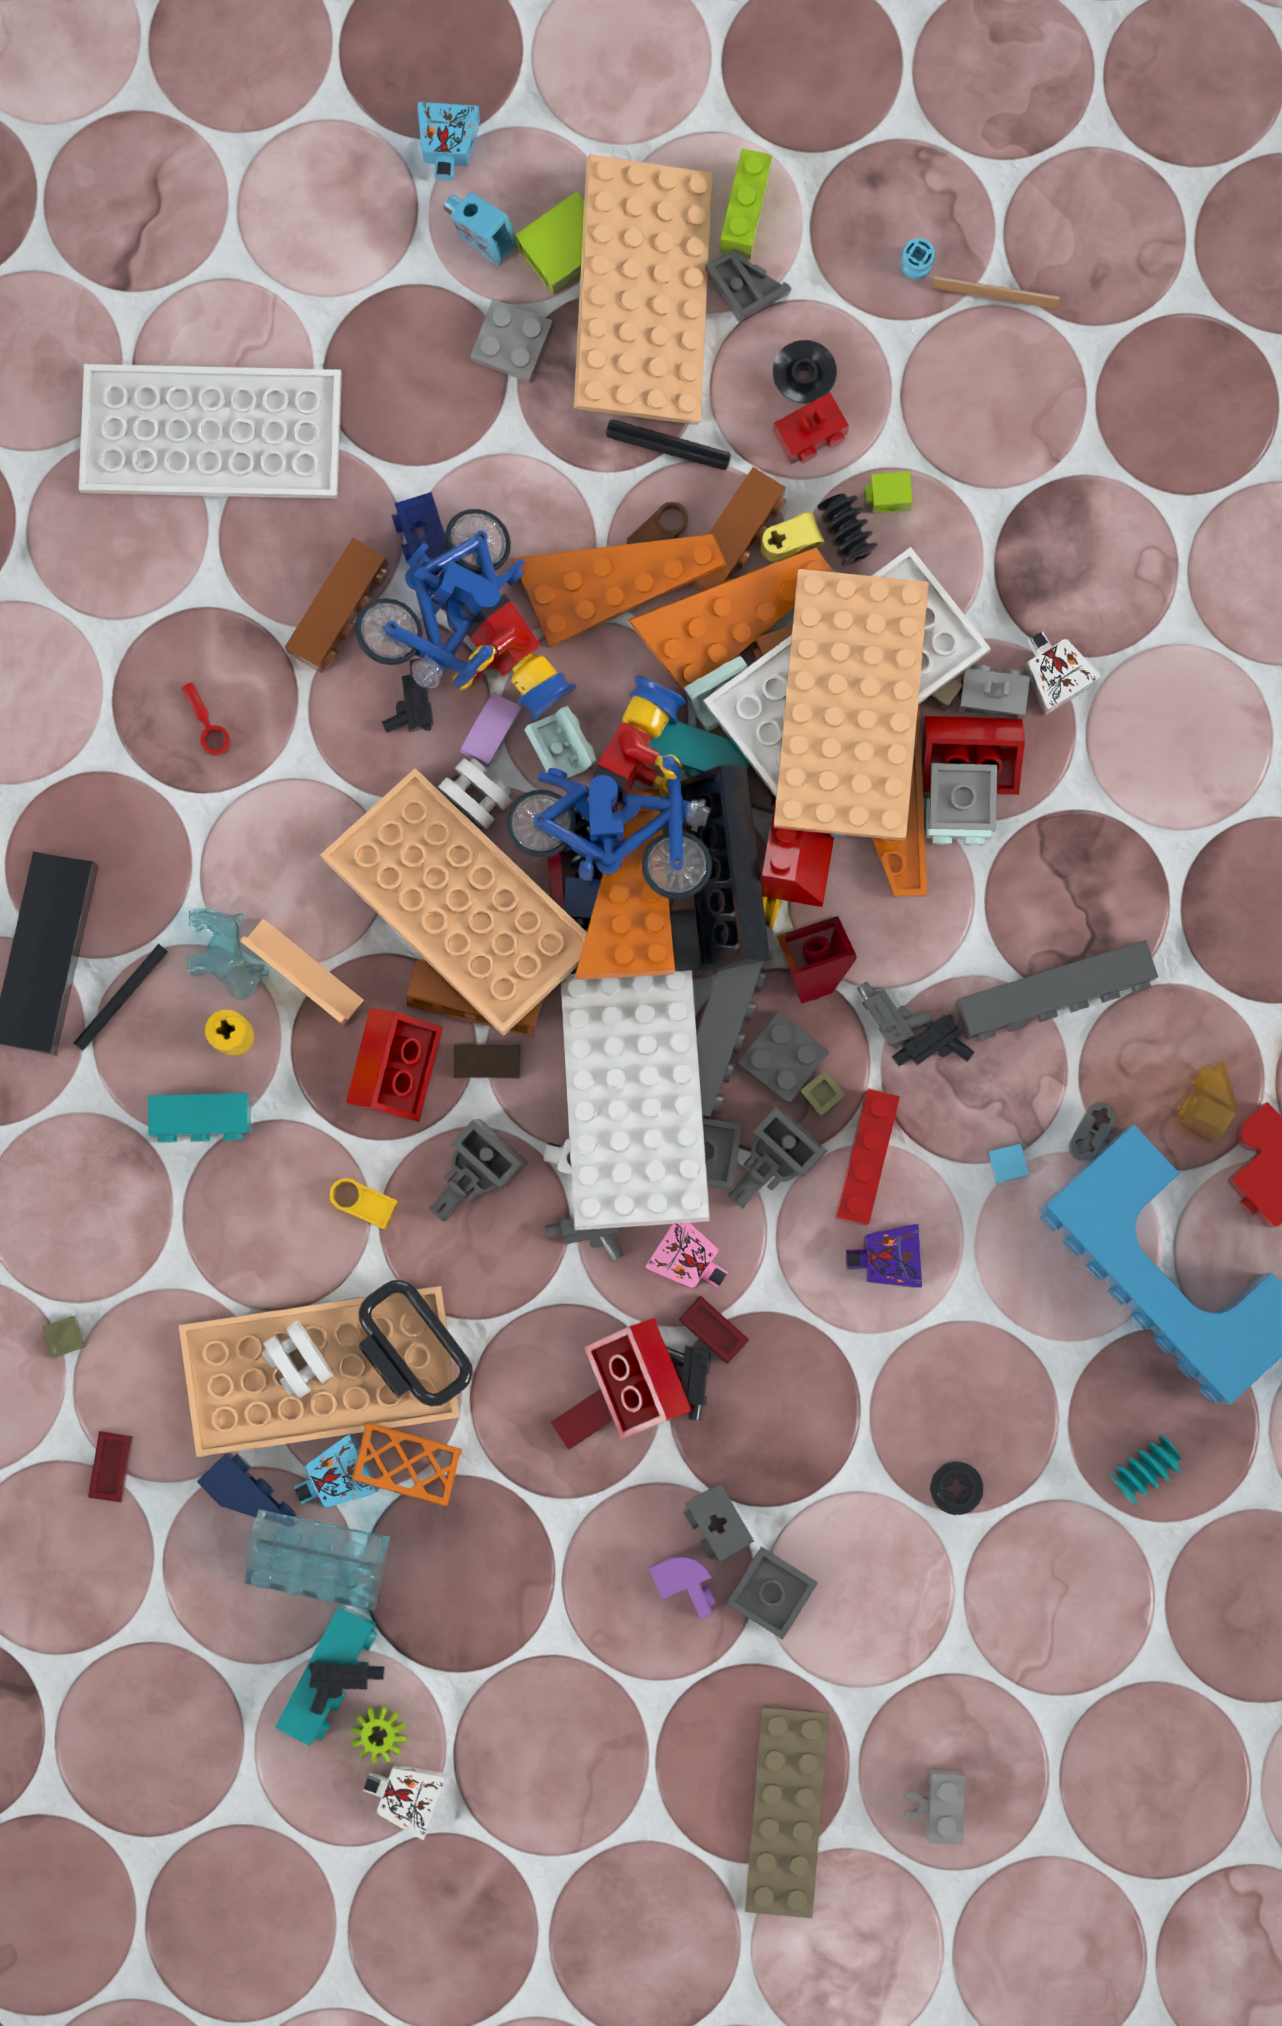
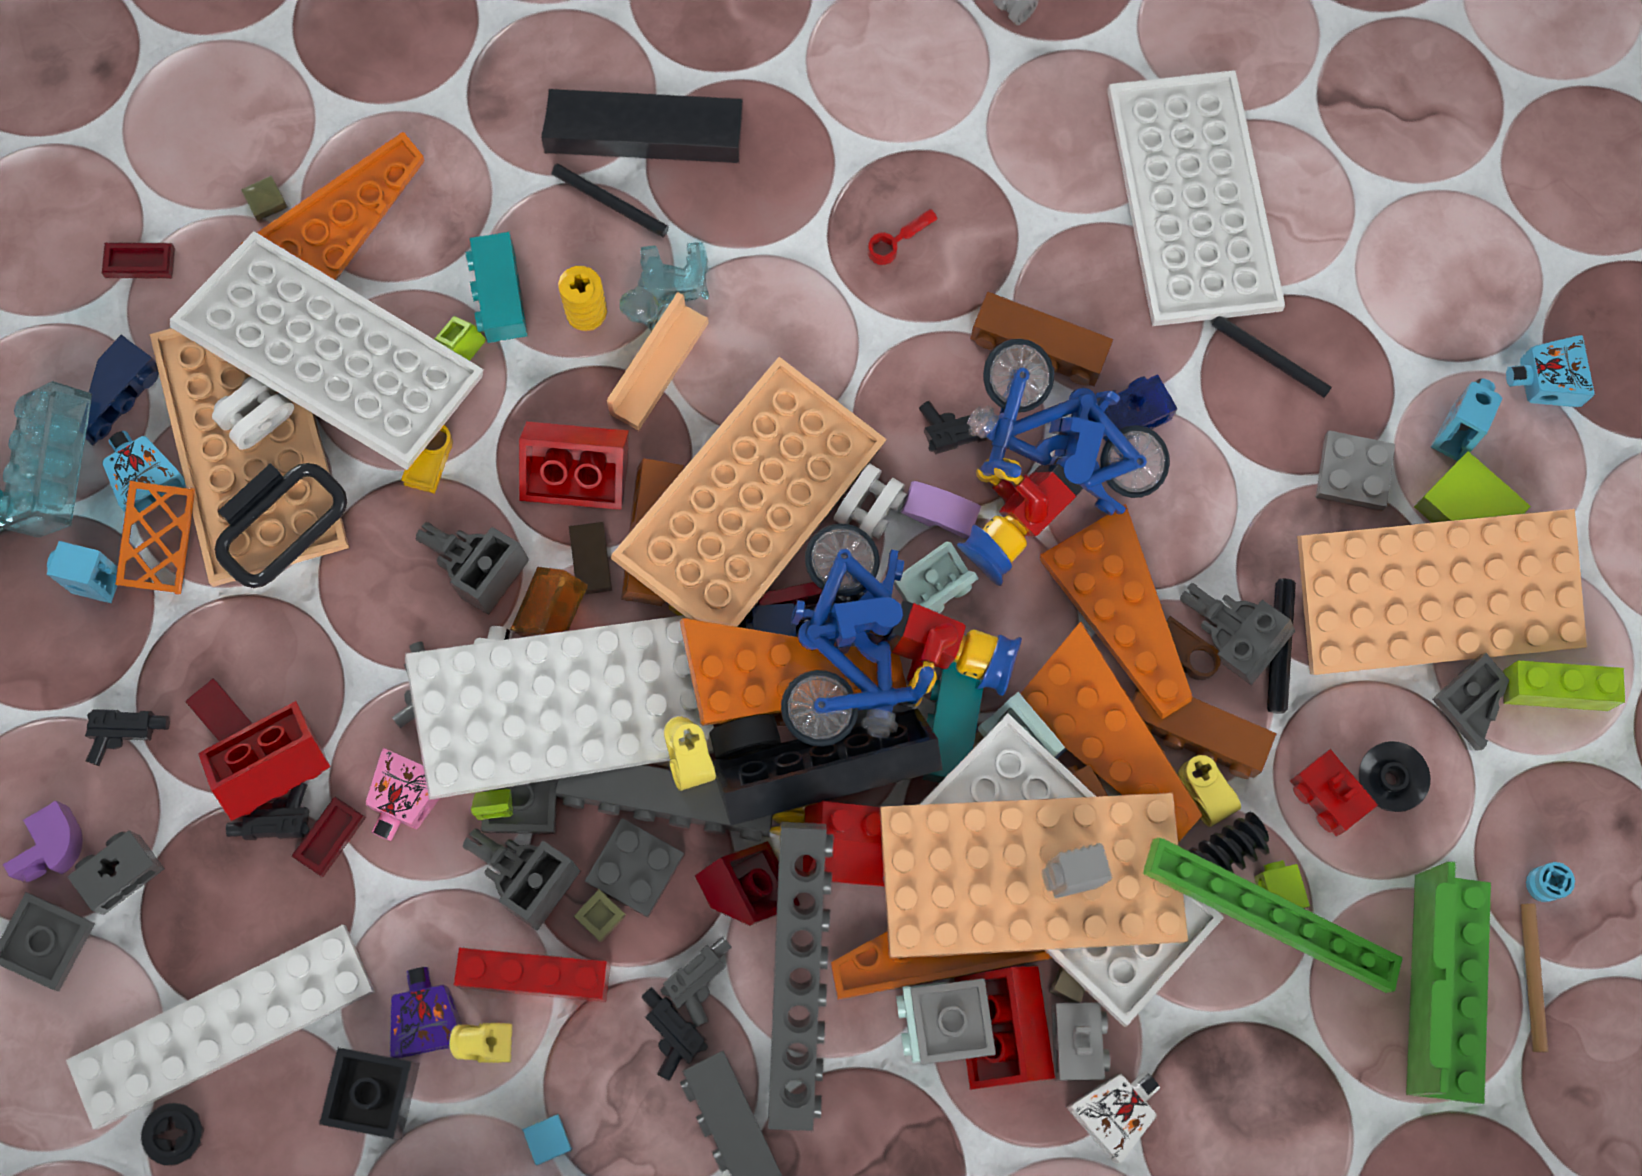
camera: 75 degrees right, 10 degrees down
(116, 1283) = (342, 214): none -> orange wing
(244, 1160) = (461, 337): none -> lime slope
(246, 1281) = (328, 349): none -> white plate
(386, 392) = (1271, 356): none -> black bar
(433, 1531) = (83, 571): none -> medium azure brick
(532, 1103) = (549, 603): none -> clear orange brick
(583, 1518) = (112, 727): none -> black piece
(656, 475) = (1244, 635): none -> dark grey brick
(696, 990) = (688, 759): none -> light yellow piece
(714, 1173) = (492, 804): none -> lime slope
(797, 903) = (787, 1109): none -> dark grey brick
(862, 663) = (1077, 871): none -> light grey brick
(869, 1439) = (219, 1027): none -> white plate
(915, 505) = (1272, 915): none -> bright green plate
(919, 1206) = (482, 1043): none -> light yellow piece
(949, 1309) = (369, 1094): none -> black brick
(993, 367) = (1449, 987): none -> bright green piece

